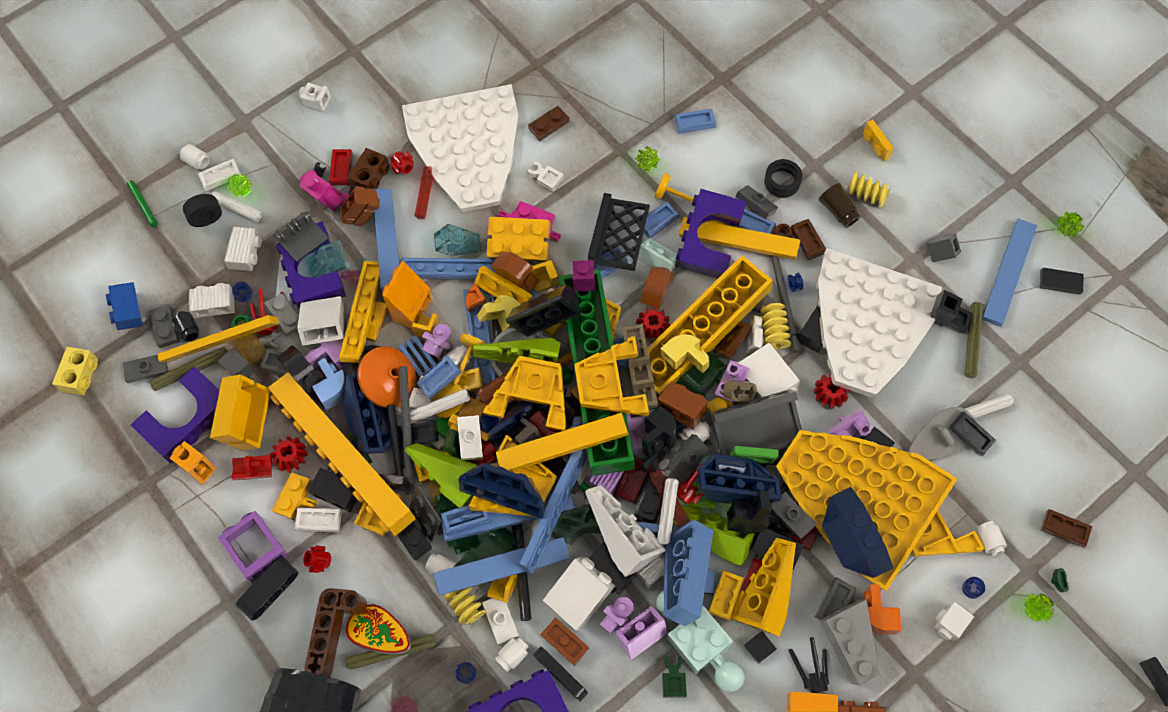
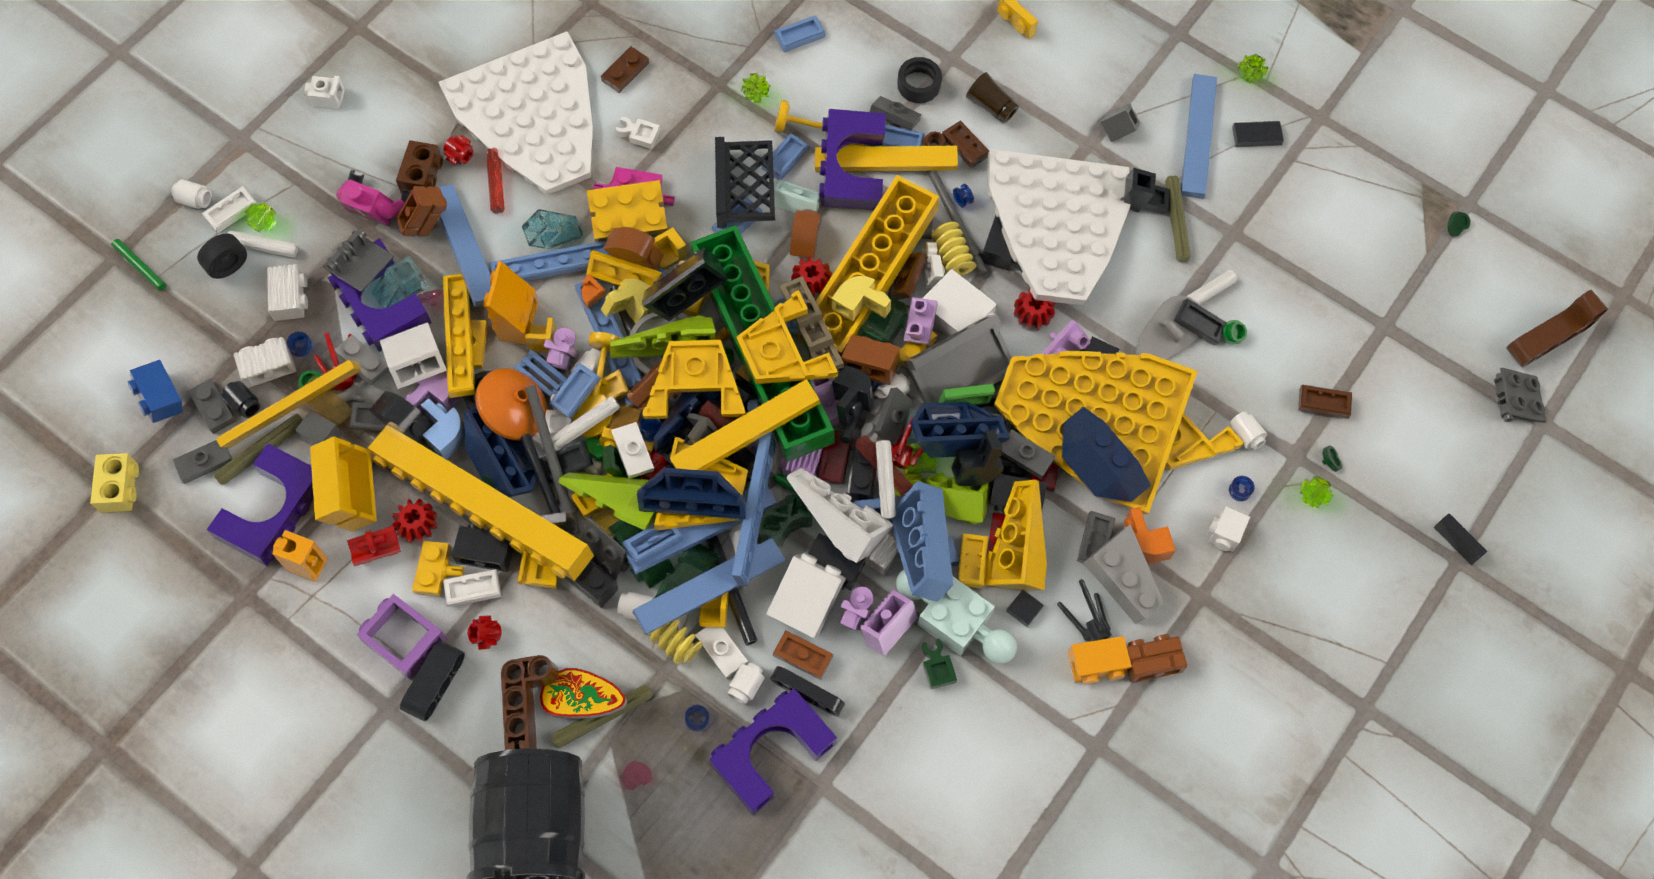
camera: 20 degrees left, 0 degrees up
(340, 166) = (381, 170): red tile -> none
(583, 275) = (720, 234): magenta brick -> none
(739, 393) = (932, 328): dark tan beam -> none
(868, 189) = (1020, 73): light yellow piece -> none
(999, 449) = (1234, 332): none -> green plate

